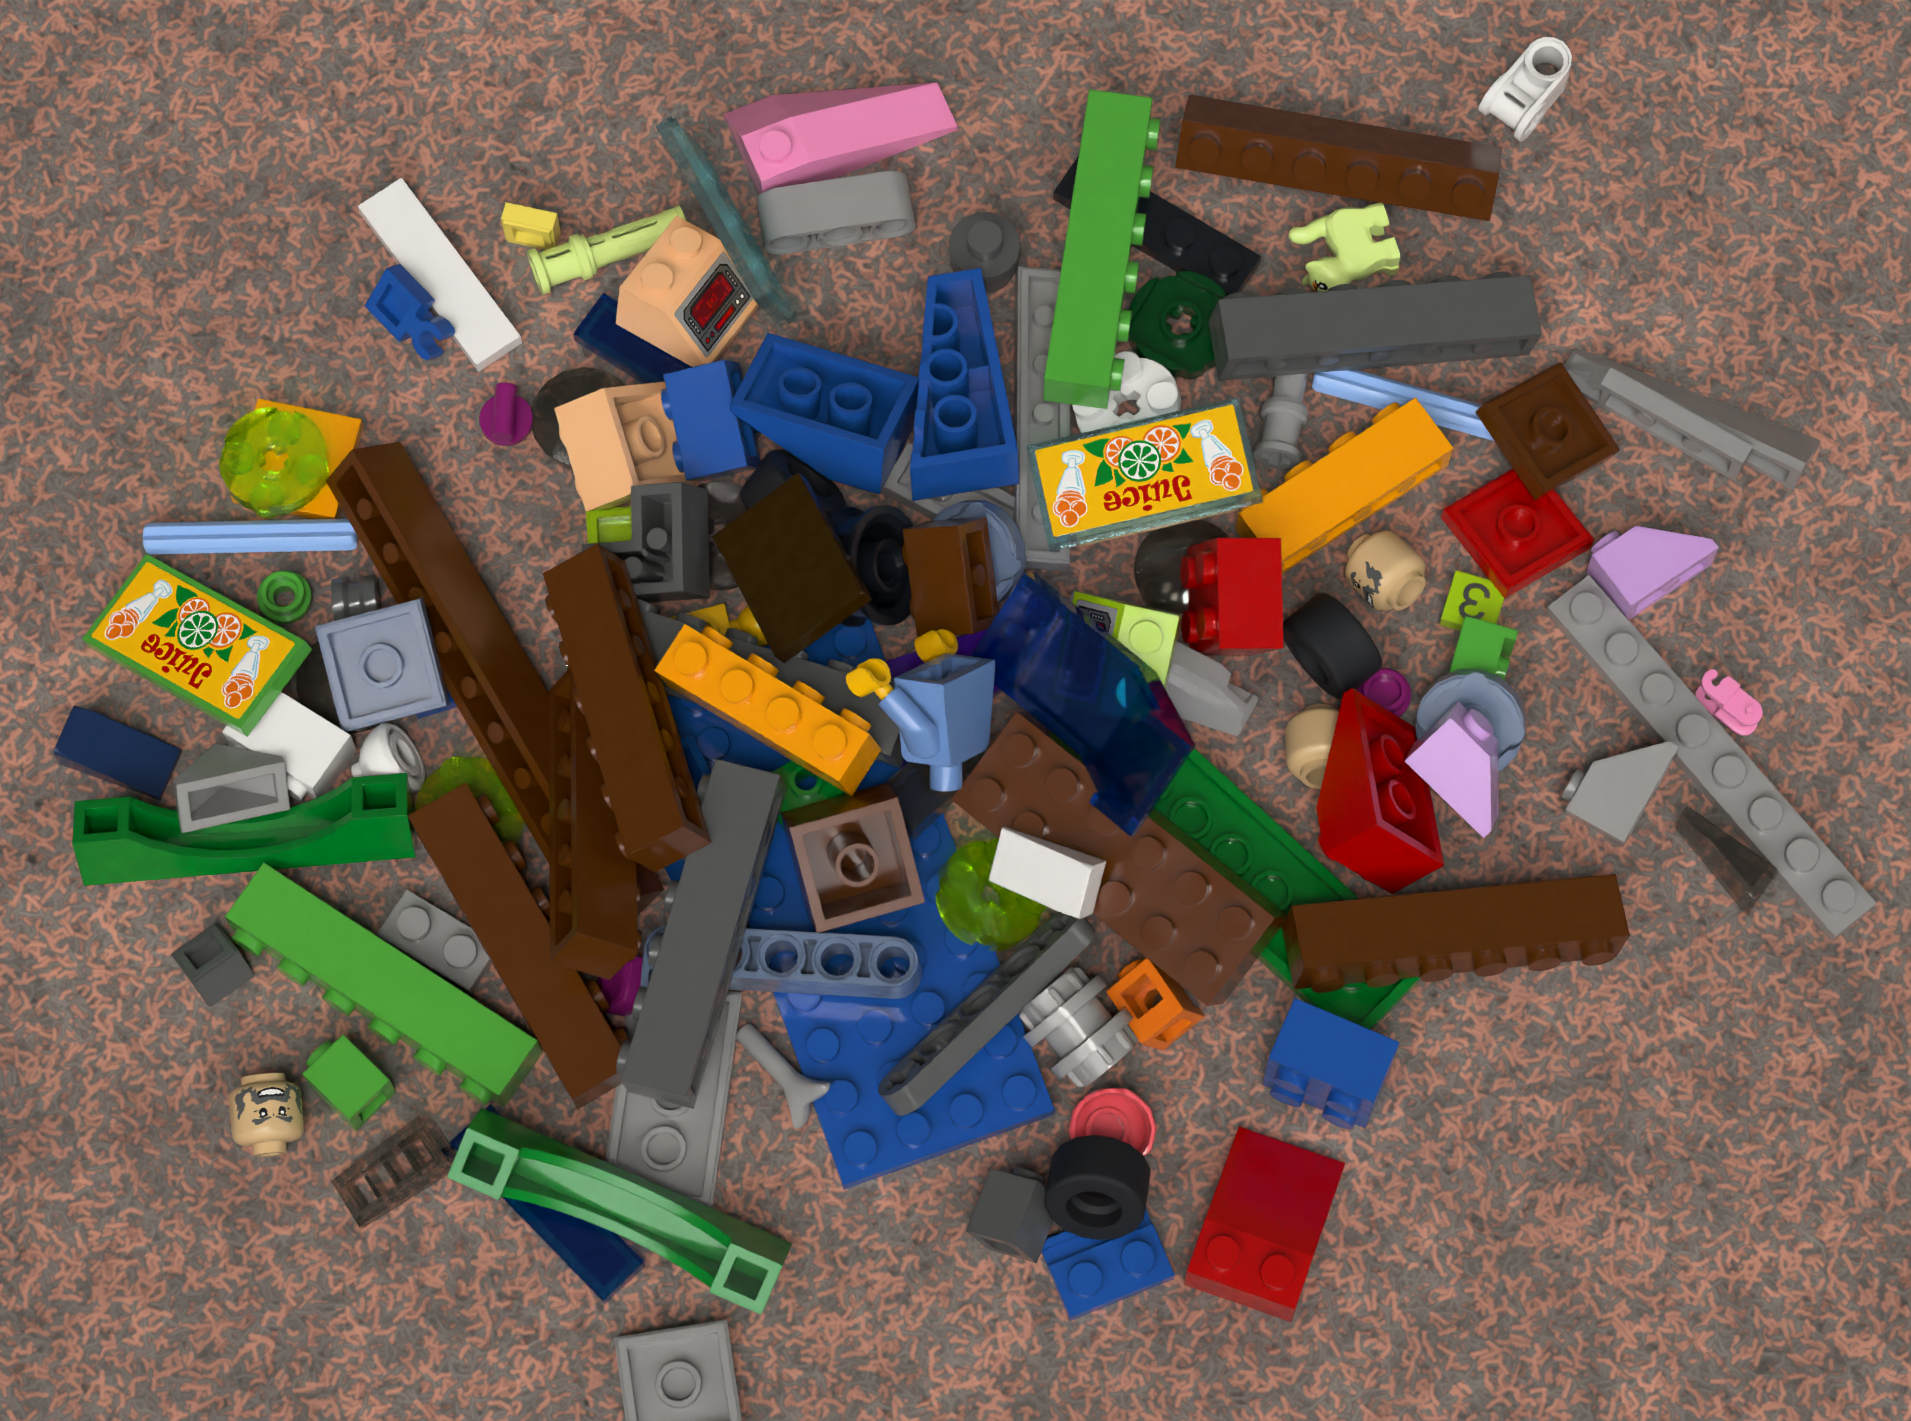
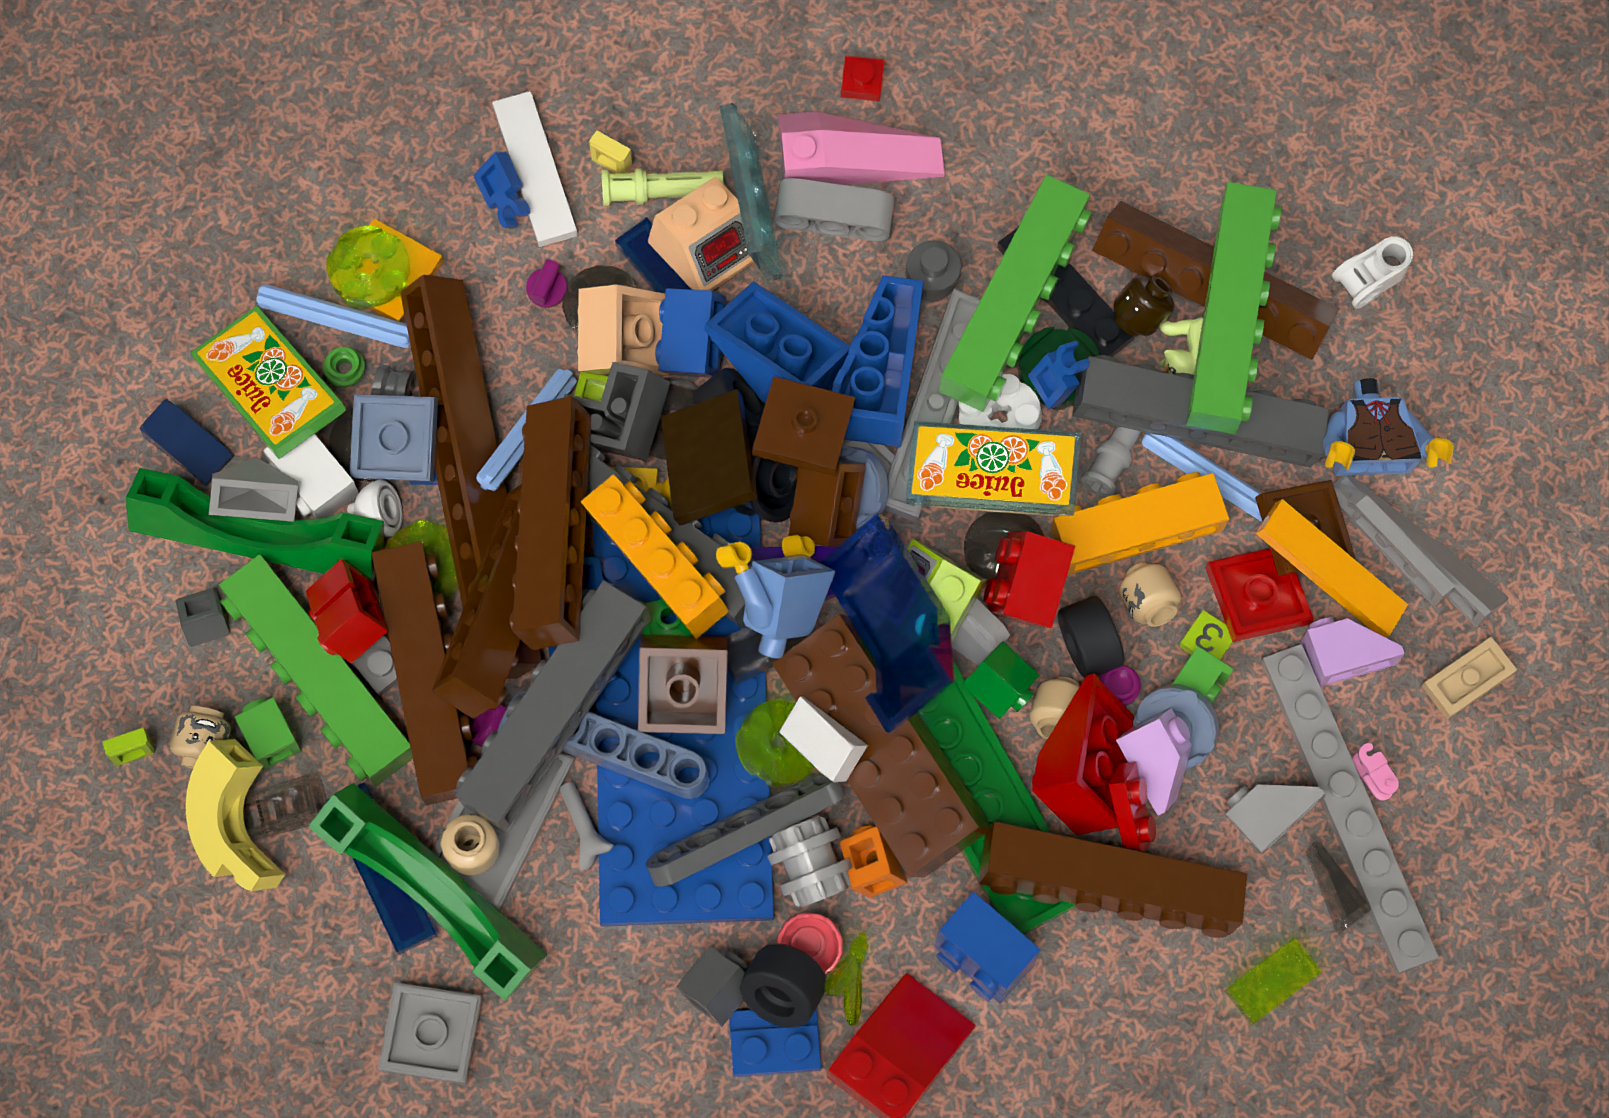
camera: 15 degrees right, 0 degrees up
(179, 1154) = (129, 747): none -> lime tile
(320, 1204) = (216, 816): none -> light yellow arch
(399, 899) = (346, 611): none -> red piece
(538, 624) = (512, 447): none -> light blue axle
(653, 1119) = (464, 831): none -> tan head
(814, 36) = (862, 78): none -> red plate
(897, 493) = (803, 426): none -> reddish brown plate
(1170, 1155) = (848, 979): none -> clear neon green piece
(1183, 334) = (1055, 374): none -> blue plate
(1240, 733) = (1002, 681): none -> green brick
(1261, 216) = (1143, 305): none -> dark brown head
(1375, 186) = (1232, 308): none -> bright green brick
(1444, 829) = (1129, 801): none -> red plate
(1596, 471) = (1331, 568): none -> light orange tile
(1602, 290) = (1379, 436): none -> torso
(1687, 995) = (1273, 981): none -> clear neon green plate
(1804, 553) = (1469, 678): none -> tan plate

